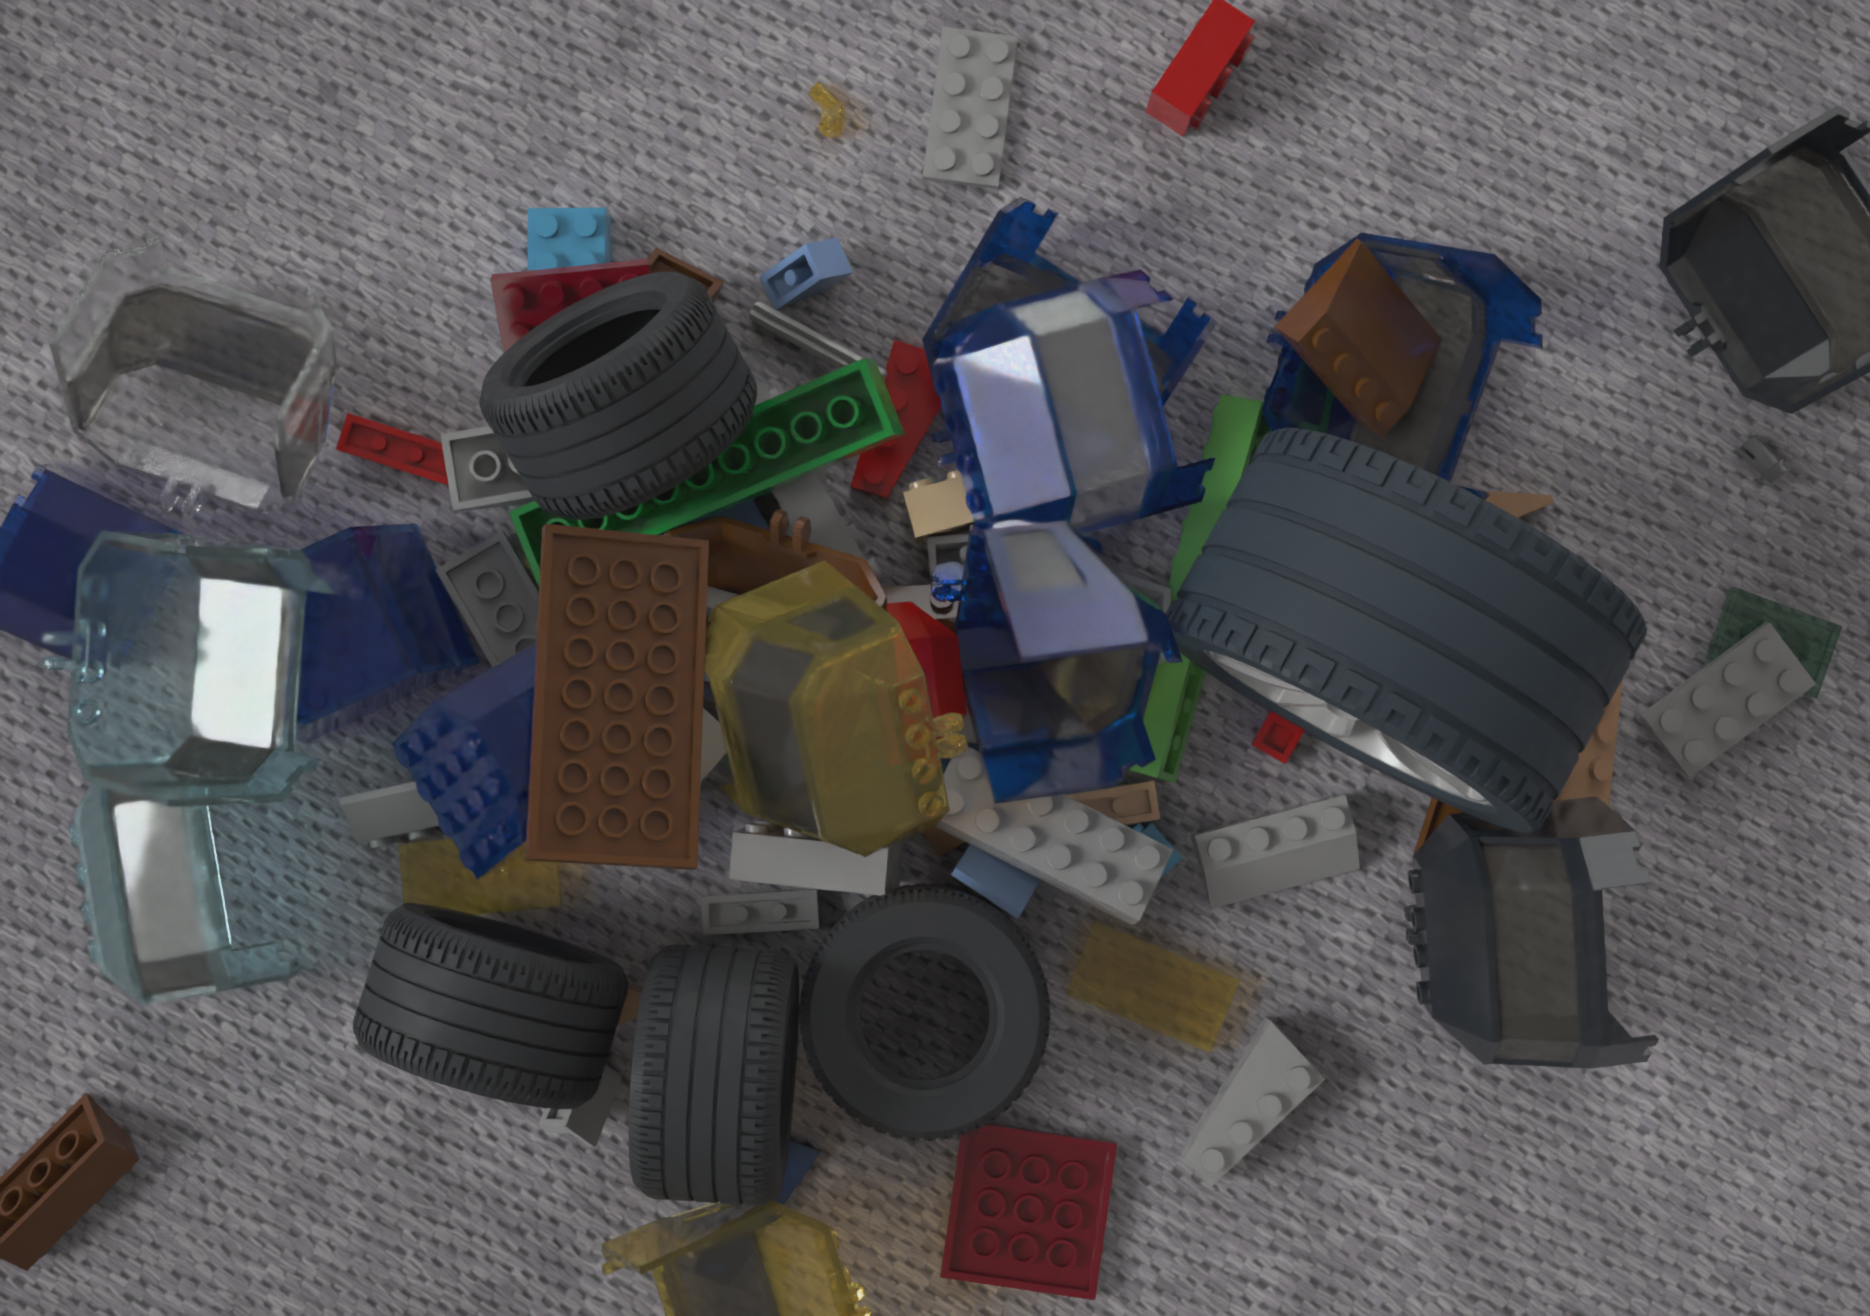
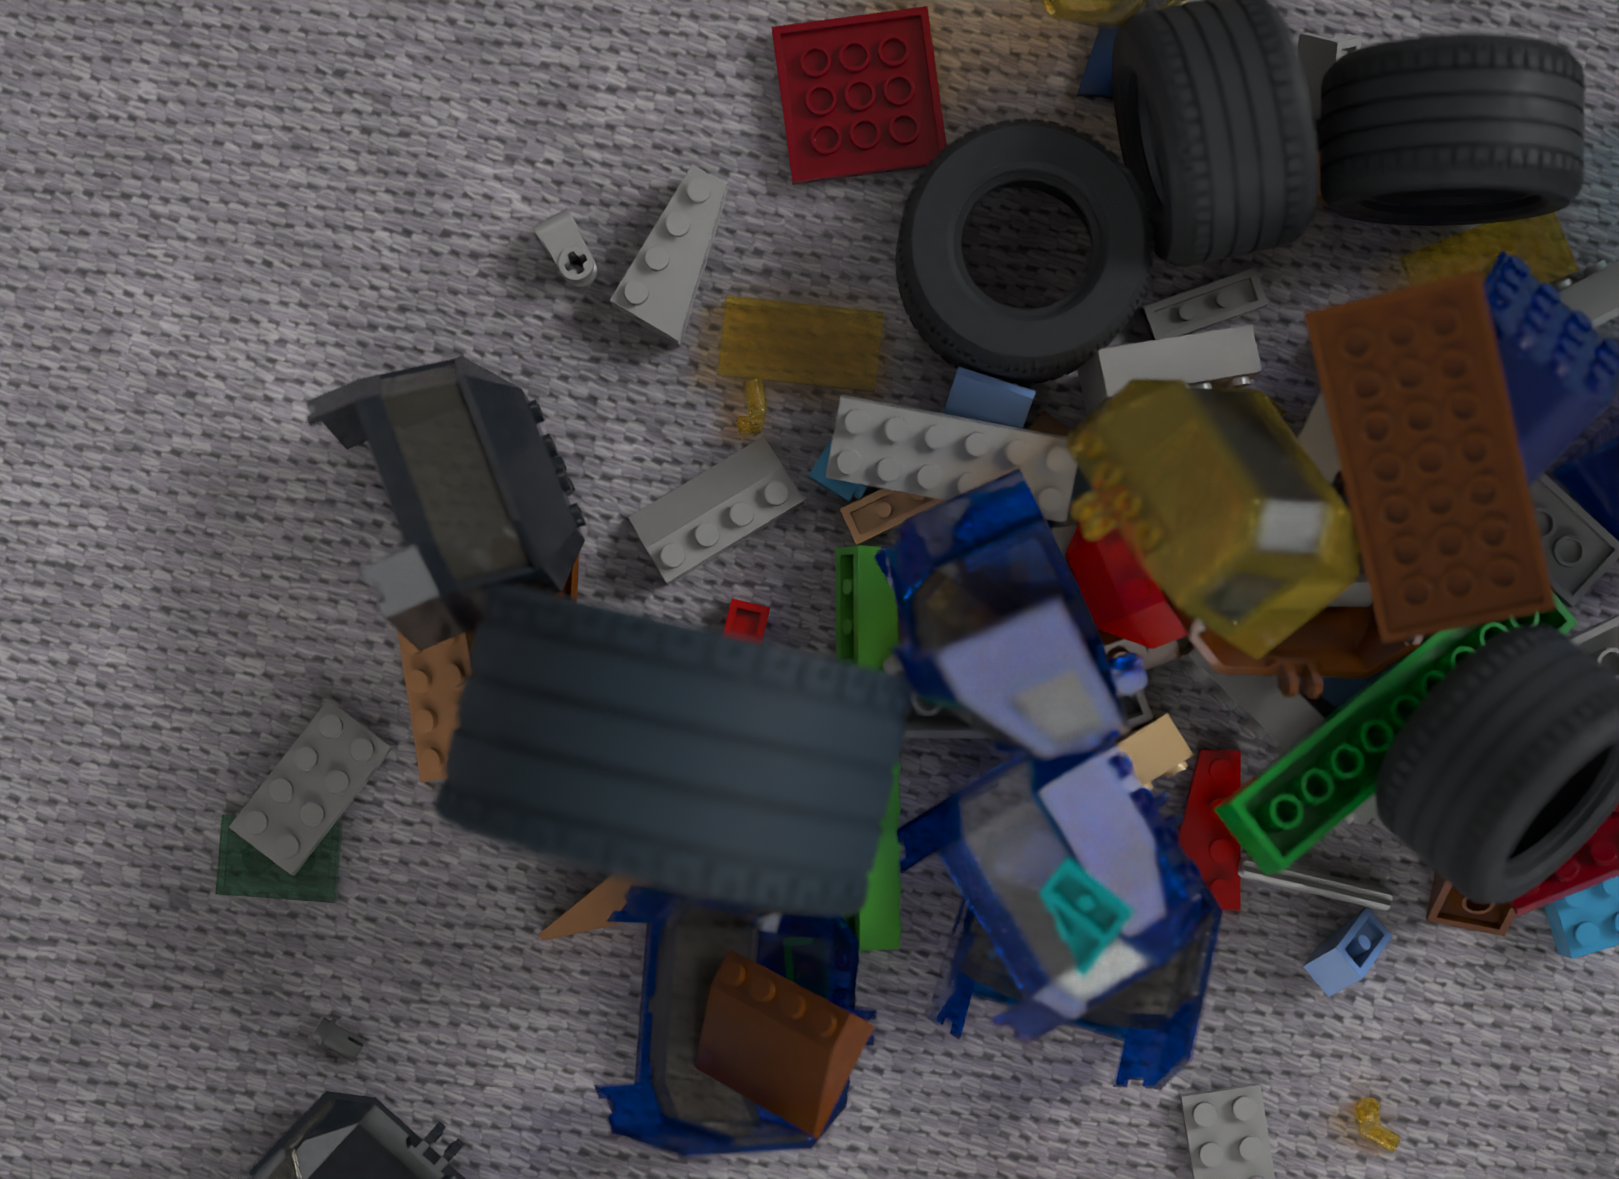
camera: 170 degrees right, 0 degrees up
(1062, 370) = (1084, 912): none -> teal wing
(1210, 937) = (757, 409): none -> clear yellow arm
(1348, 1145) = (566, 244): none -> light grey piece

